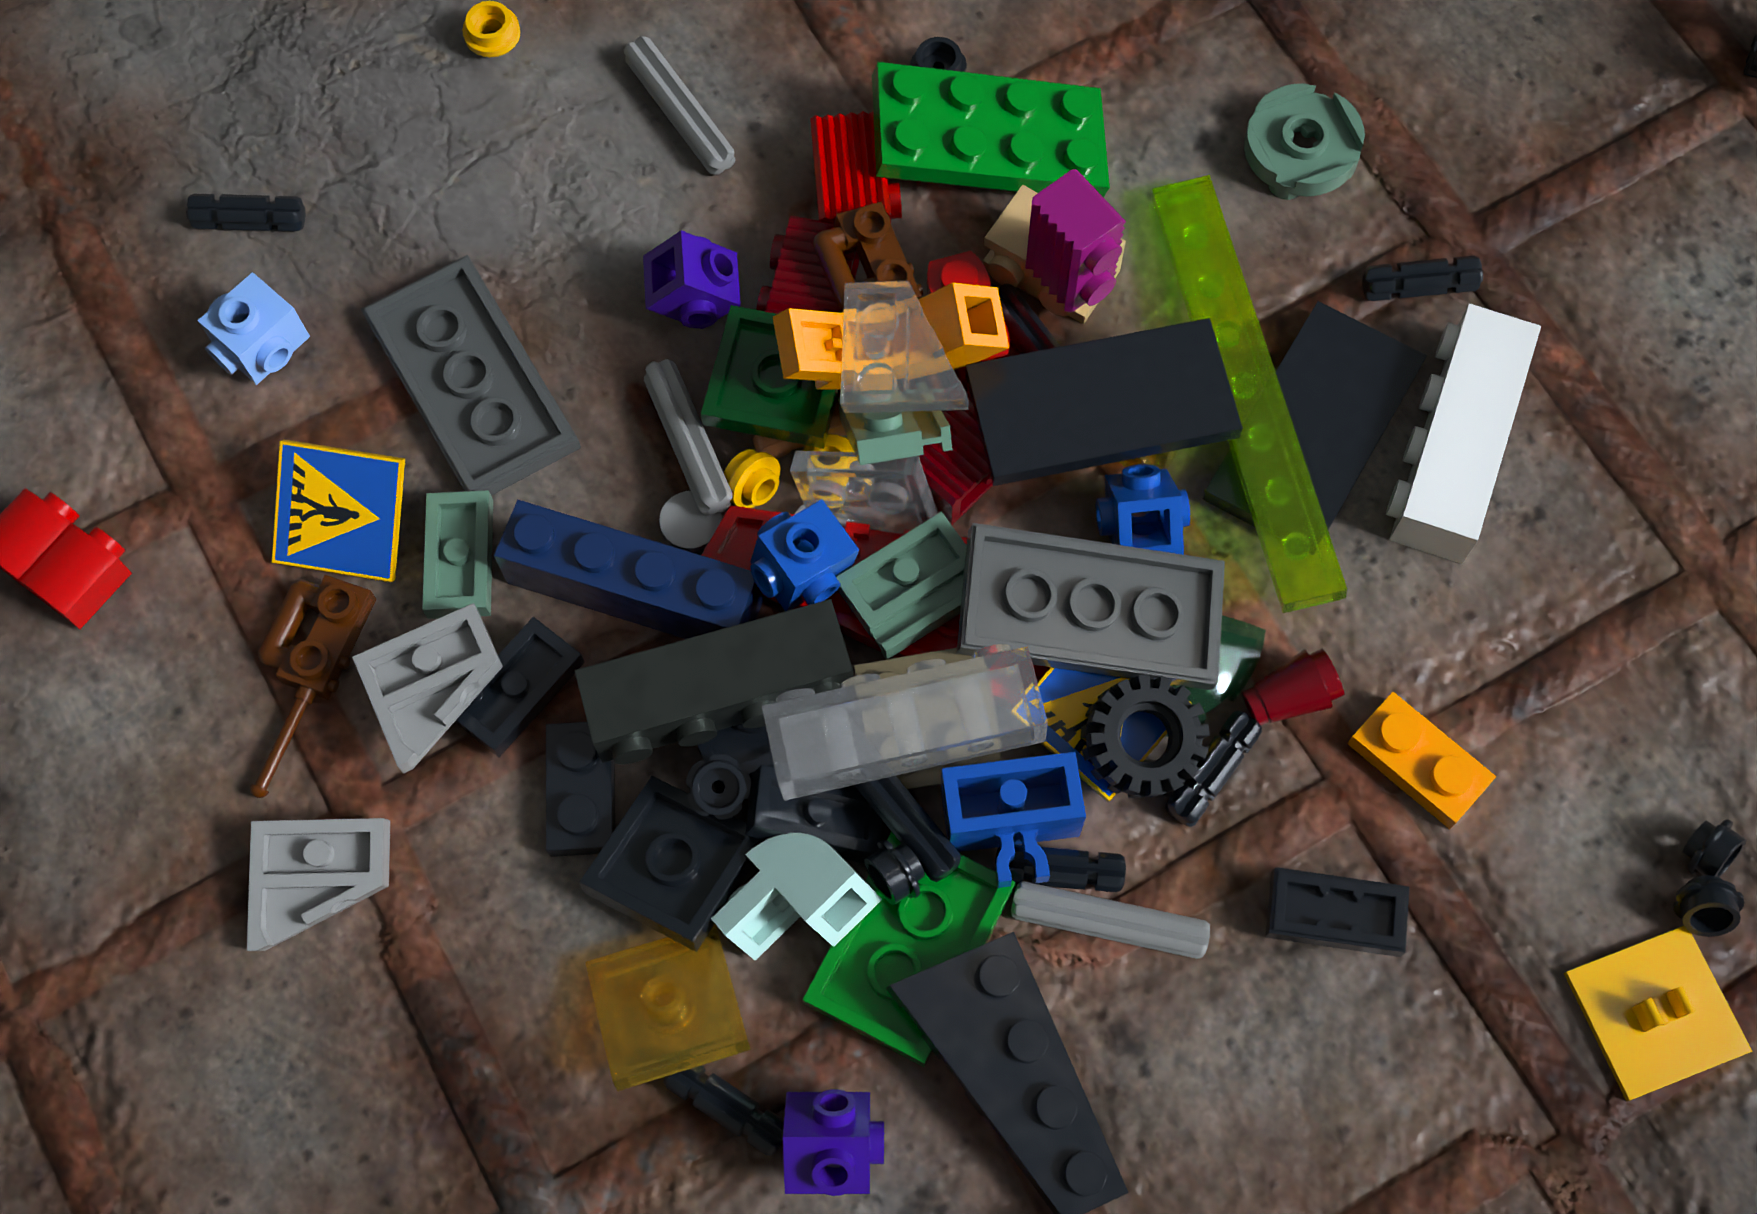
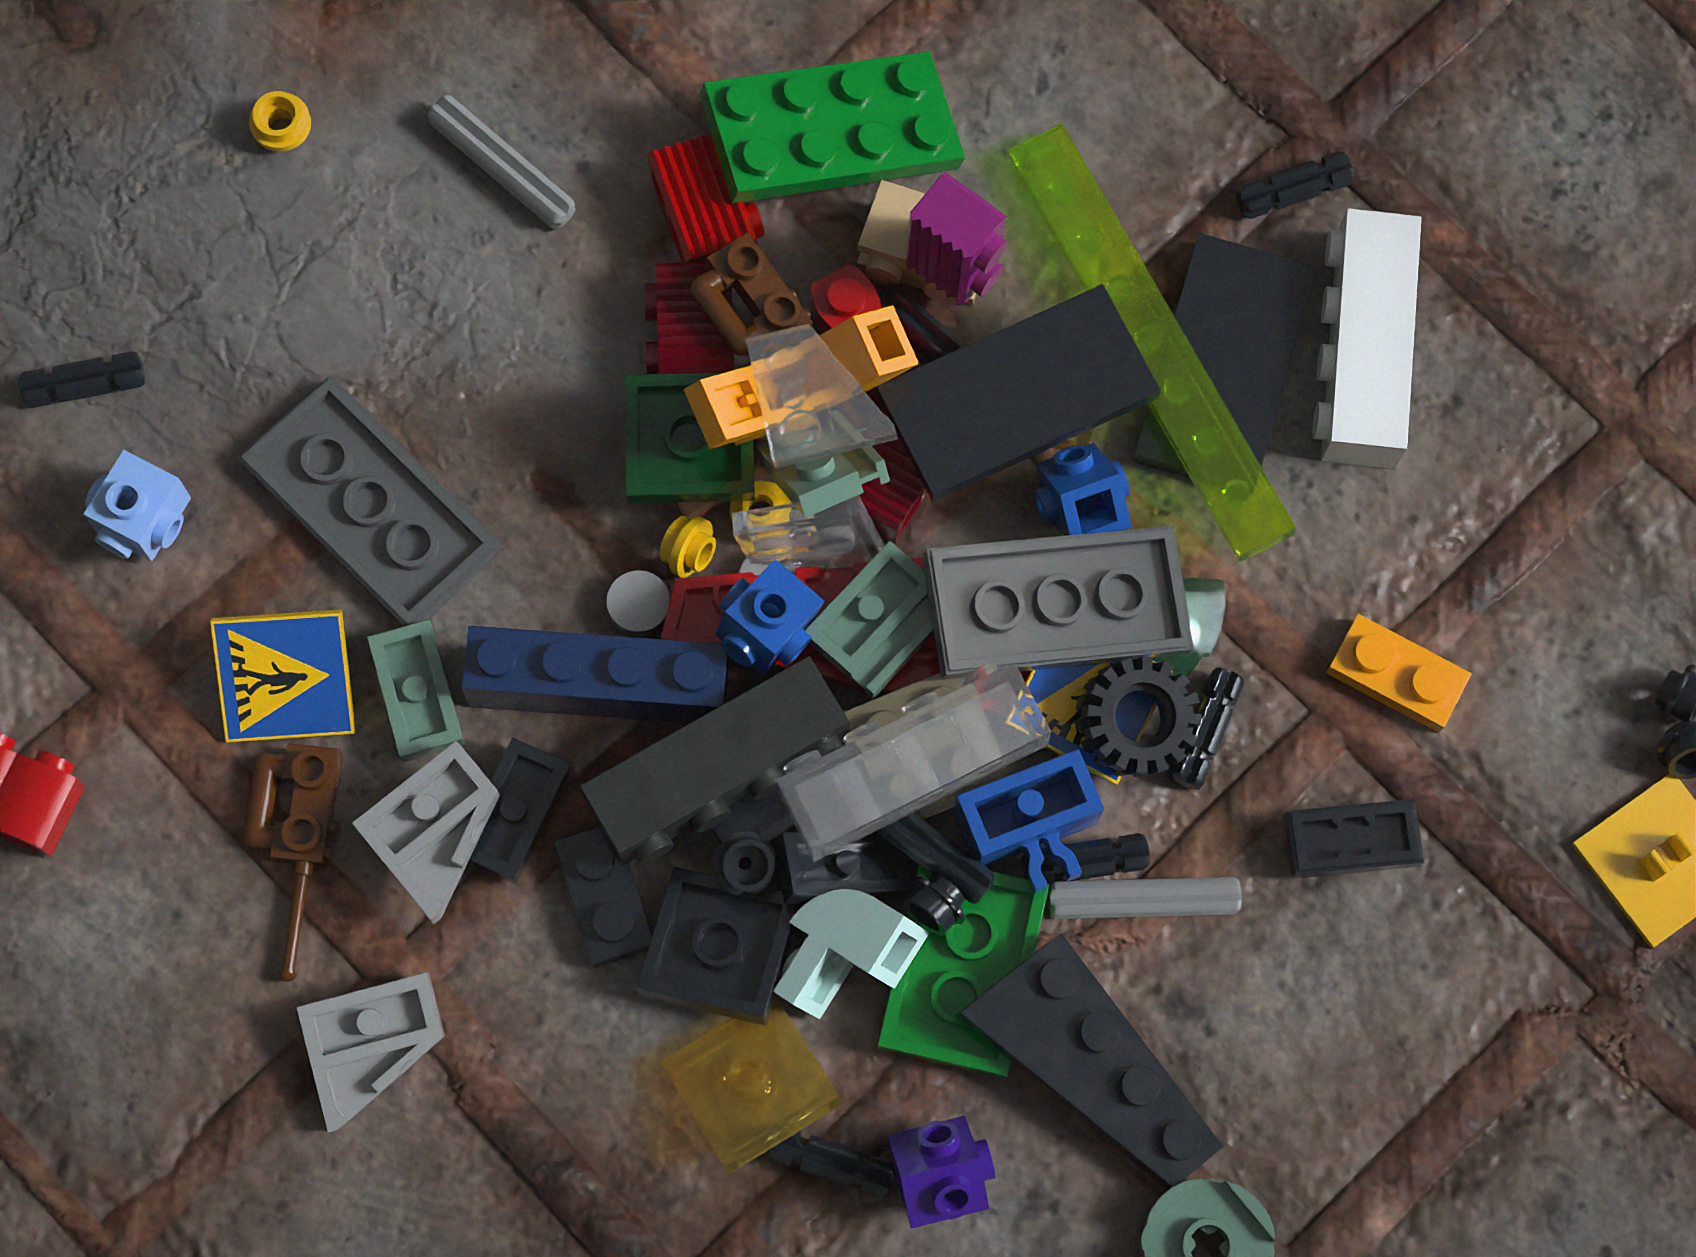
camera: 20 degrees left, 5 degrees up
(688, 437) = (612, 517): light grey axle -> none
(691, 280) = (573, 354): dark purple brick -> none
(939, 53) = (757, 46): black plate -> none
(1295, 689) = (1265, 633): dark red cone -> none
(1299, 170) = (1139, 96): sand green plate -> none

